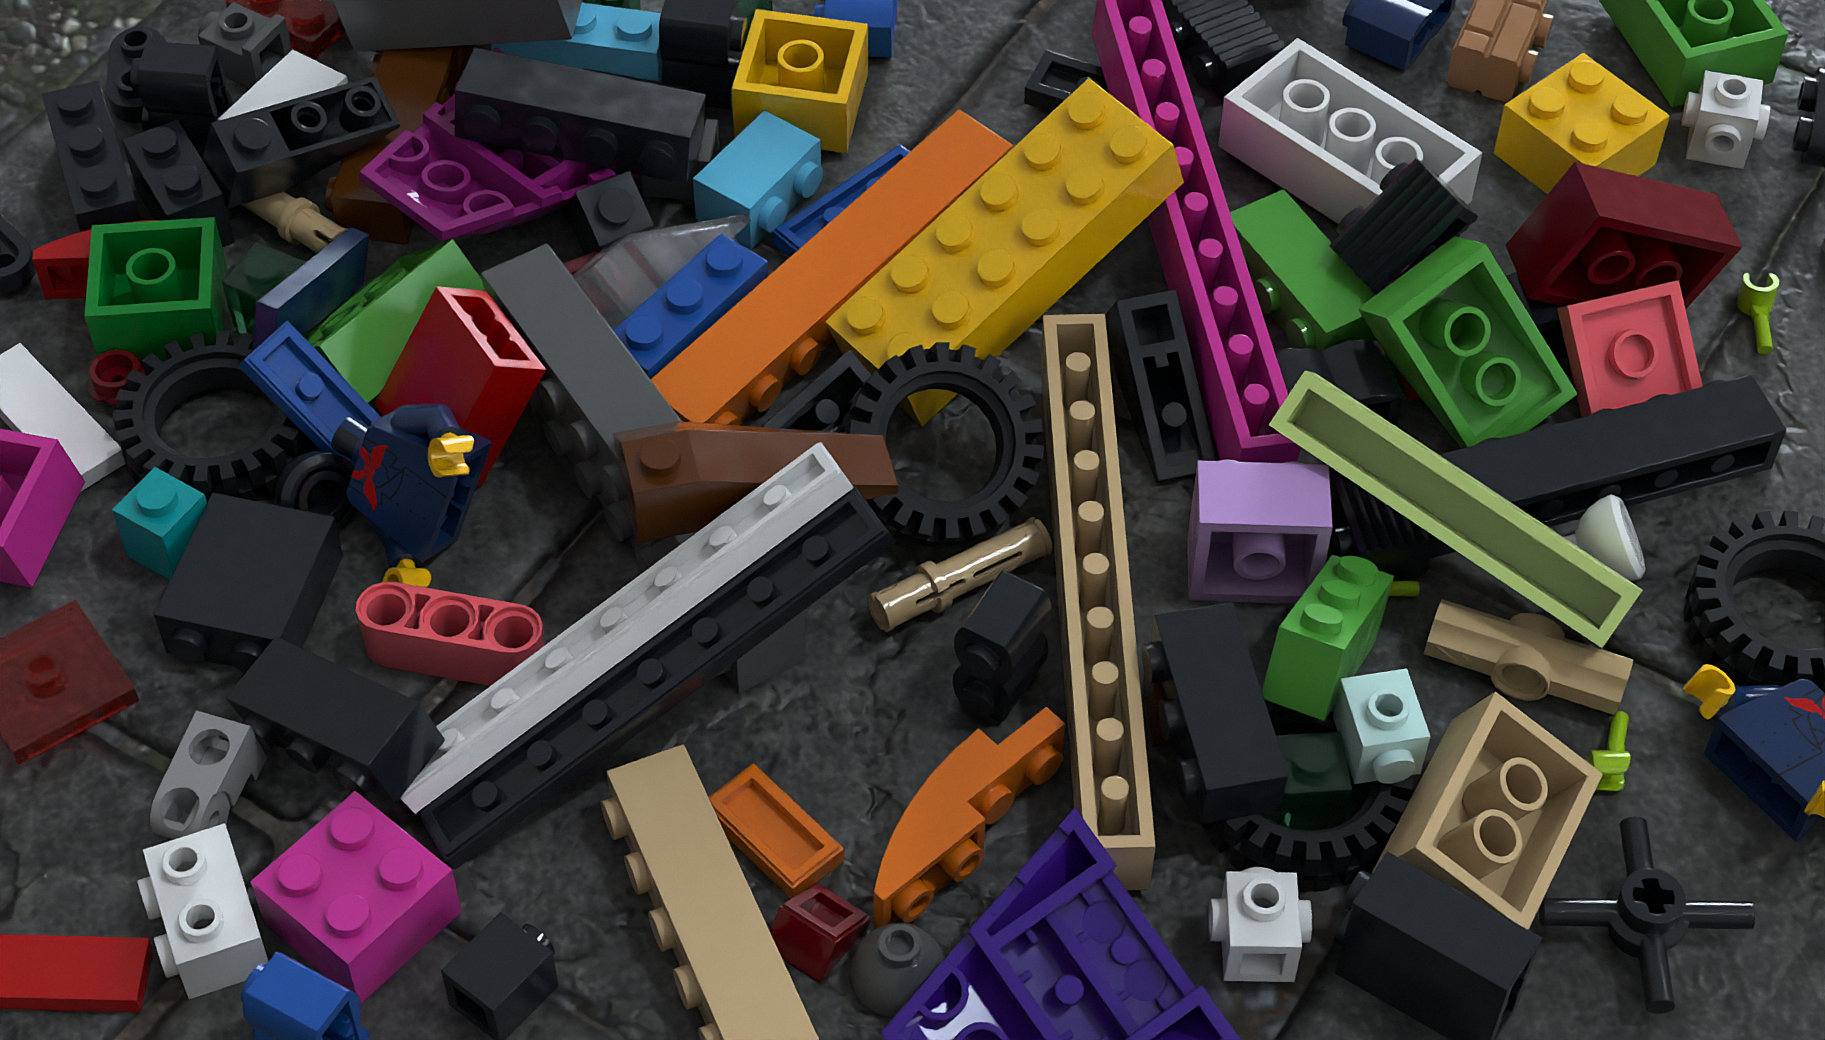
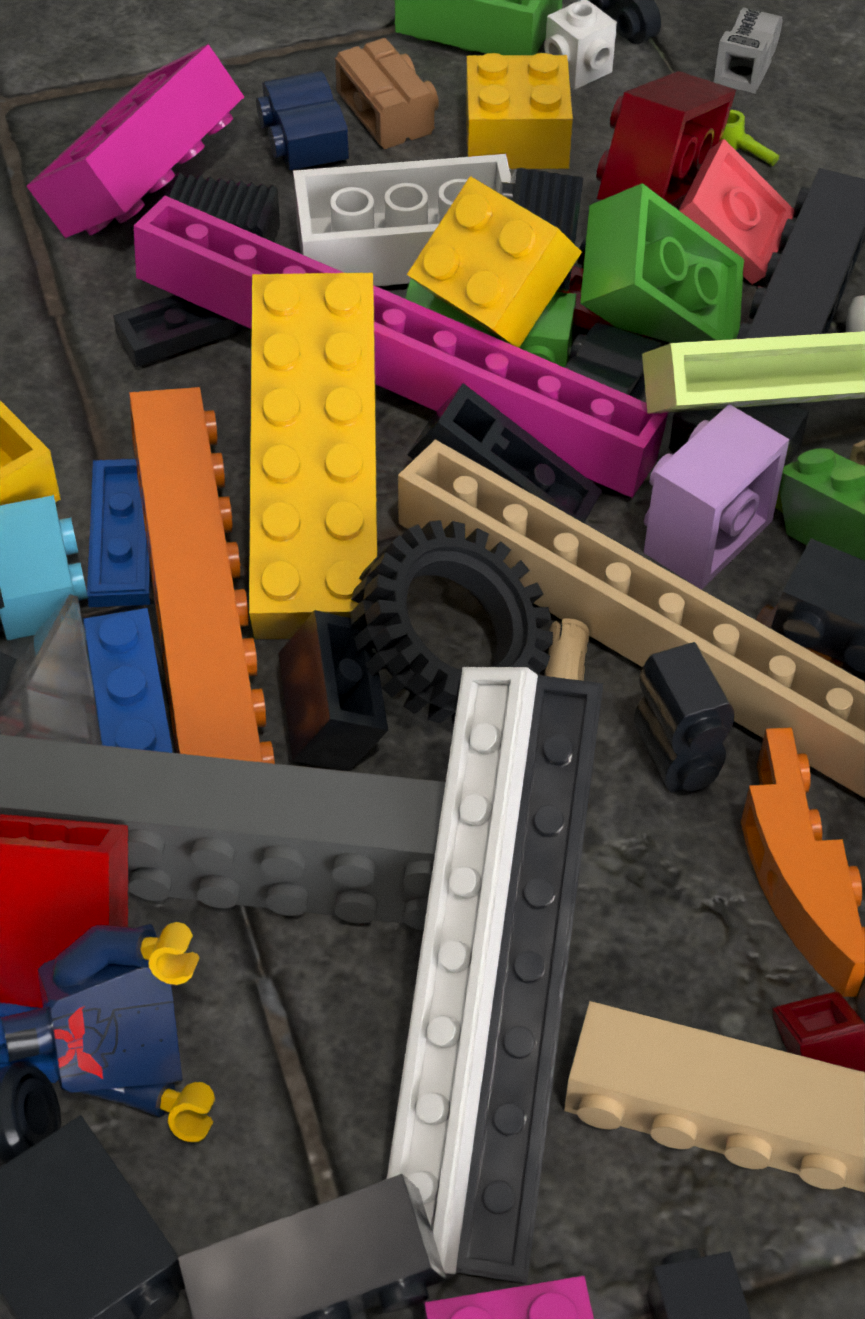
camera: 50 degrees left, 0 degrees up
(427, 617) = (277, 1142): coral beam -> none
(694, 472) = (379, 772): reddish brown wedge -> none
(775, 832) = (711, 998): orange tile -> none
(1311, 219) = (494, 262): none -> yellow brick

